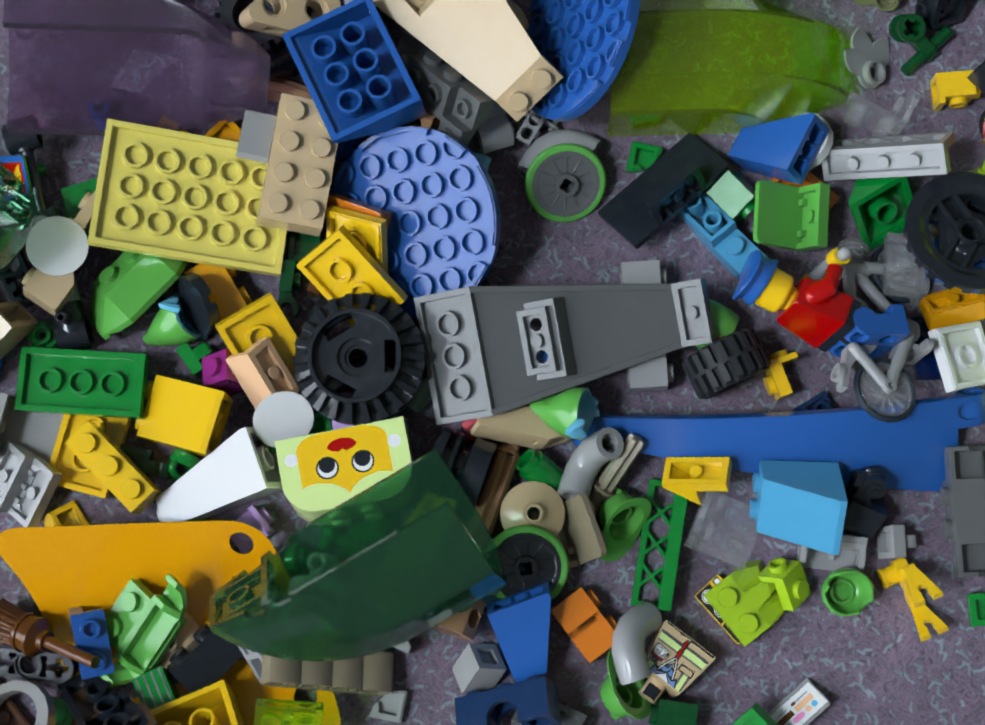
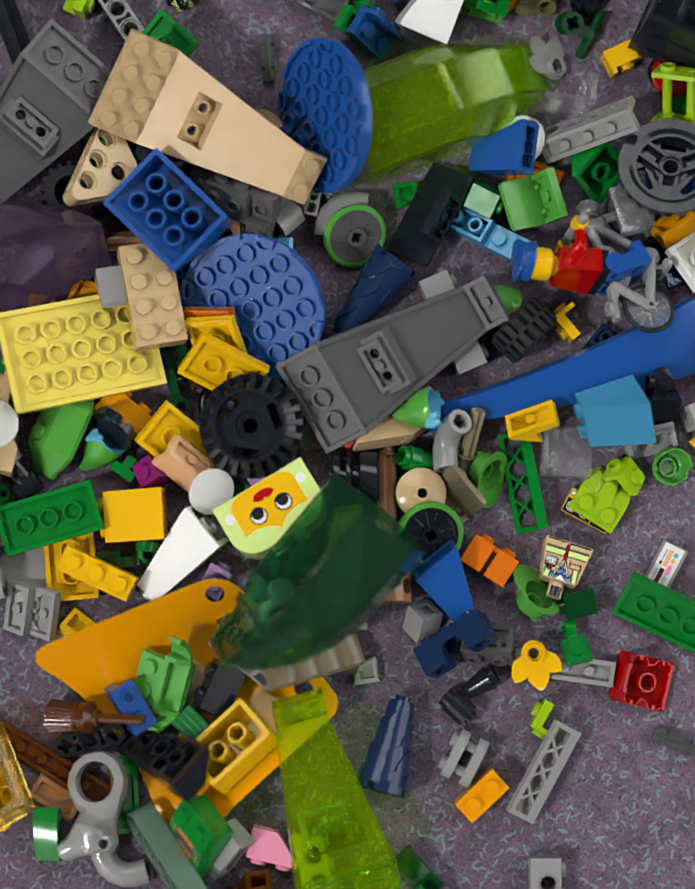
camera: 25 degrees left, 5 degrees up
(571, 249) = (376, 286): none -> dark blue cone
(629, 642) = (526, 560): light grey cylinder -> none

